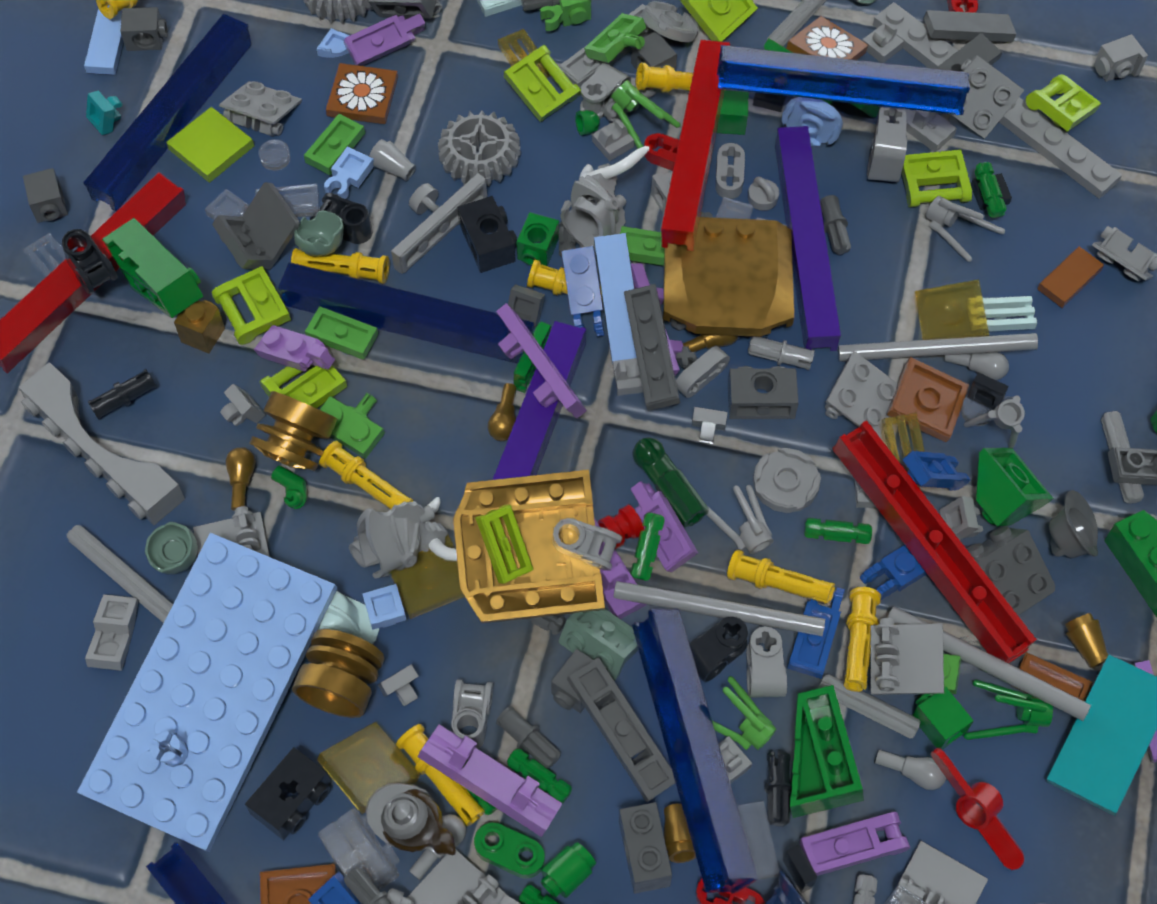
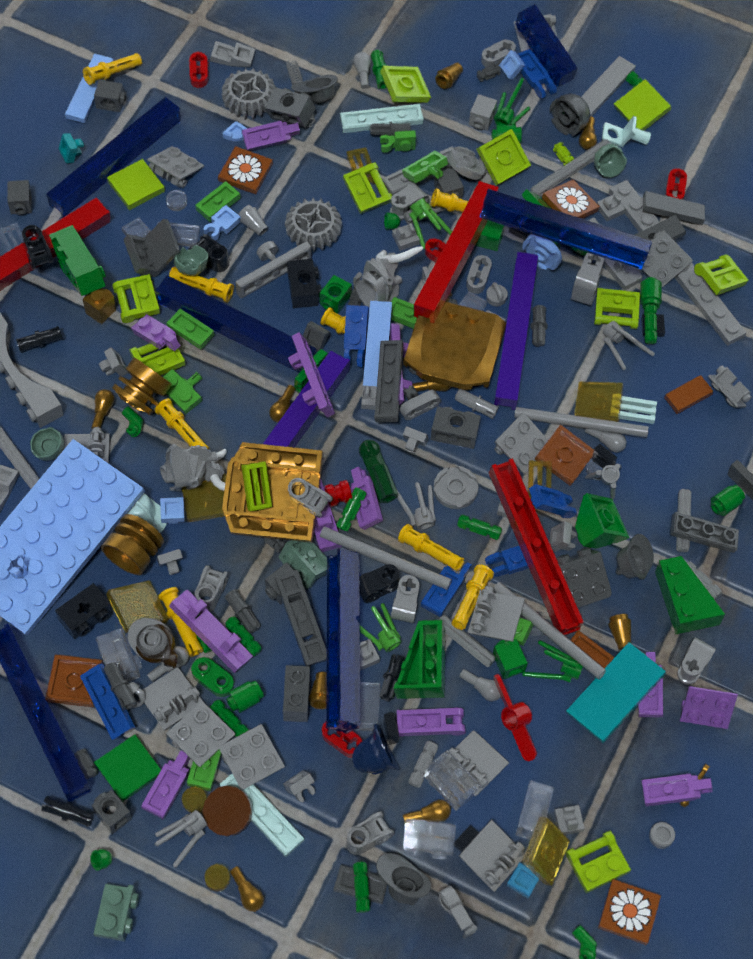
camera: 10 degrees right, 0 degrees up
(975, 146) = (651, 292): none -> green brick

